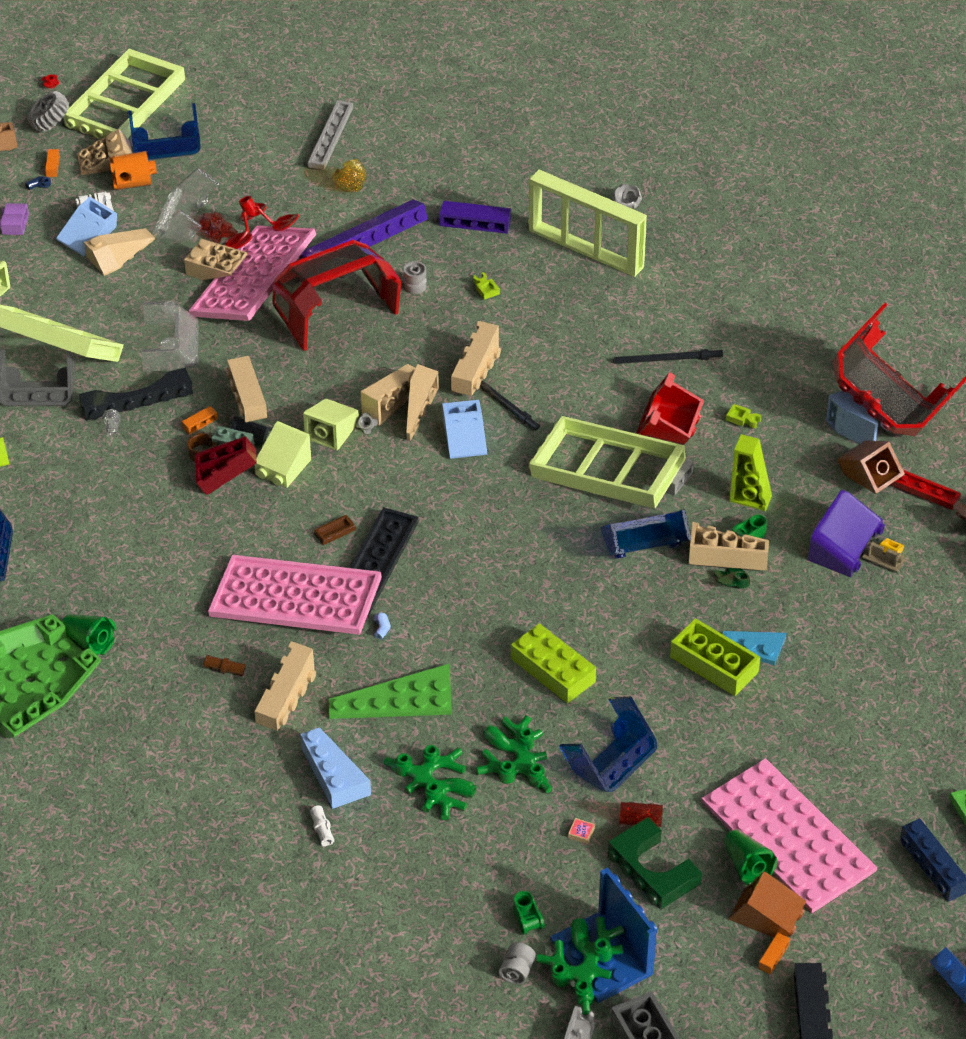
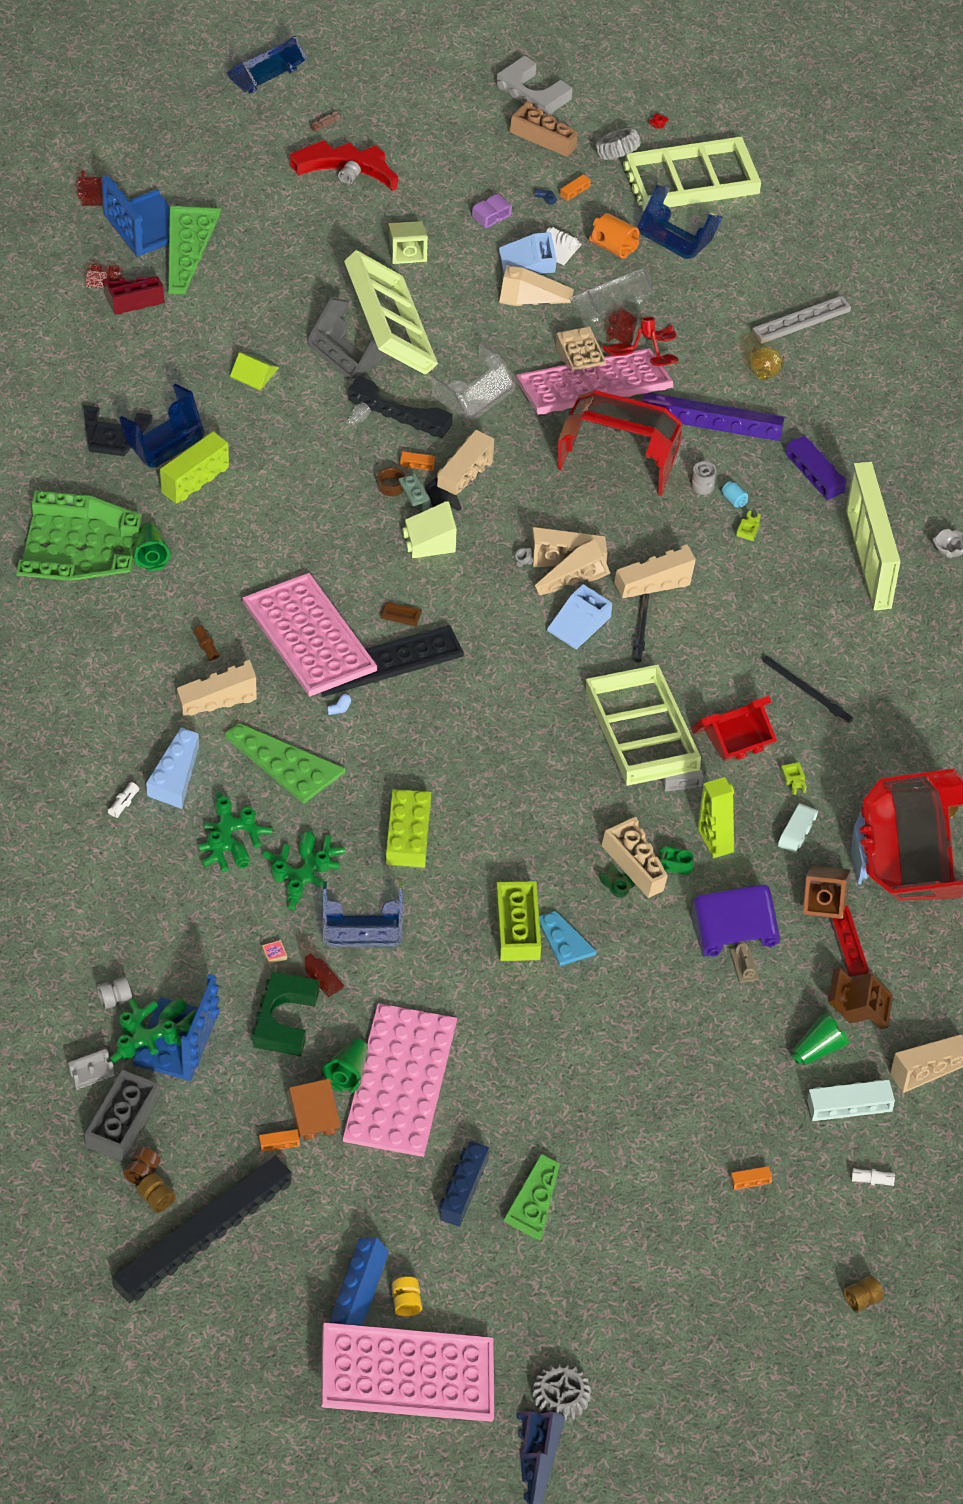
camera: 45 degrees right, 5 degrees up
(46, 550) = (194, 467): none -> lime brick
(96, 156) = (623, 206): tan slope -> none
(223, 463) = (381, 503): dark red wedge -> none
(330, 423) = (496, 534): yellowish green slope -> none
(448, 273) = (735, 494): none -> medium azure brick
(528, 916) = (164, 972): green piece -> none
(646, 533) = (593, 793): clear blue windscreen -> none
(792, 444) = (797, 828): none -> light aqua beam
(892, 545) = (759, 961): yellow tile -> none

